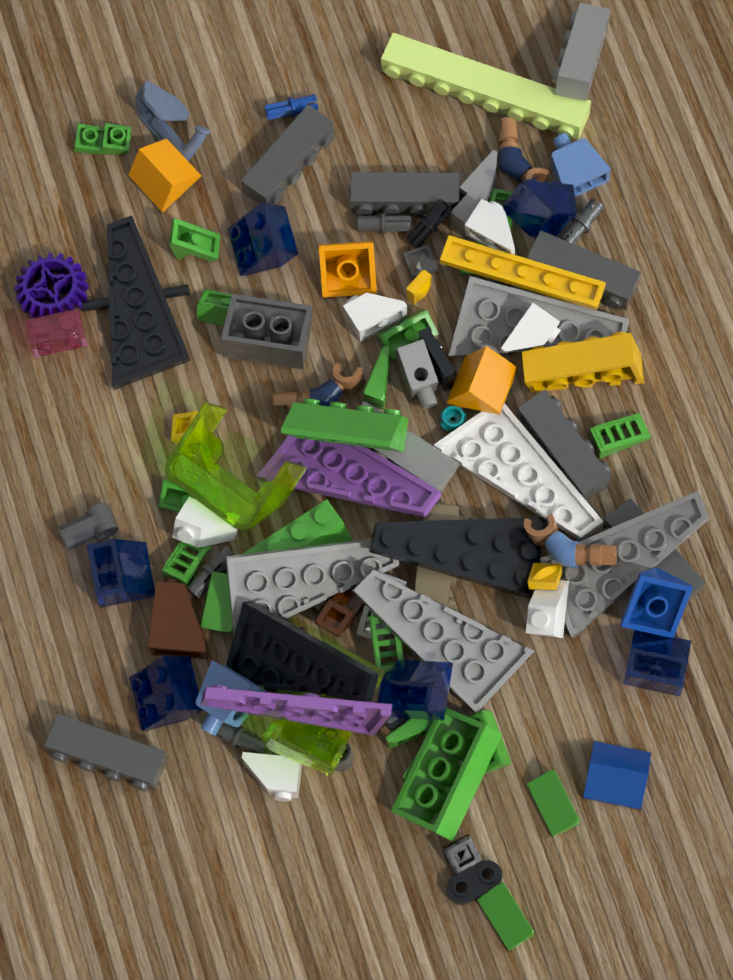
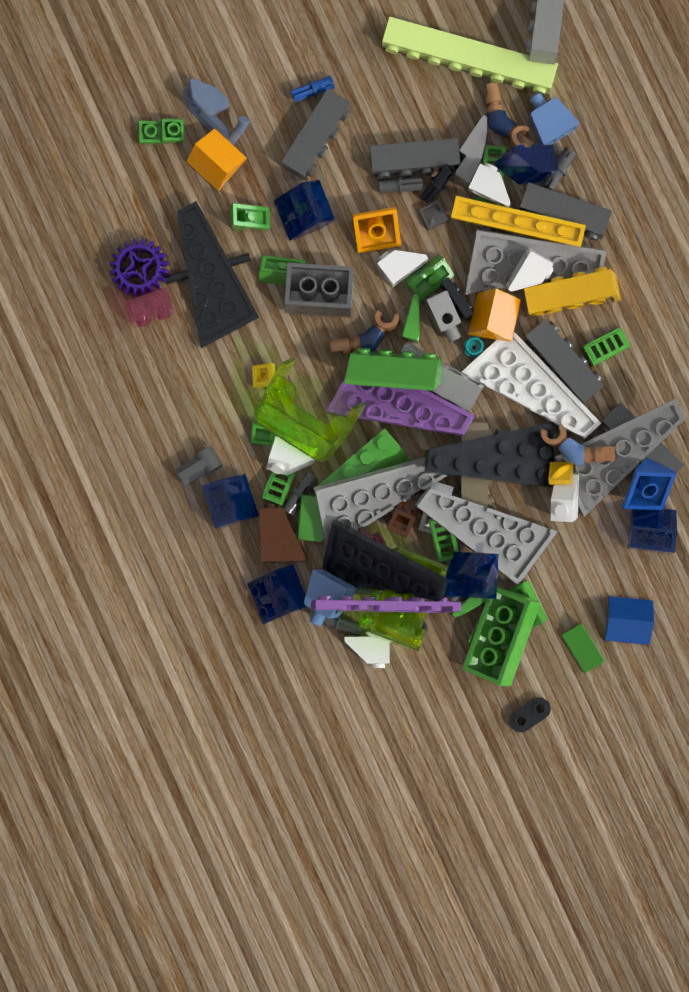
camera: 10 degrees left, 15 degrees up
(106, 752) = (238, 645): dark grey brick -> none
(419, 287) = (435, 239): yellow tile -> none
(462, 854) = (518, 694): tile -> none
(506, 916) = (556, 738): bright green slope -> none

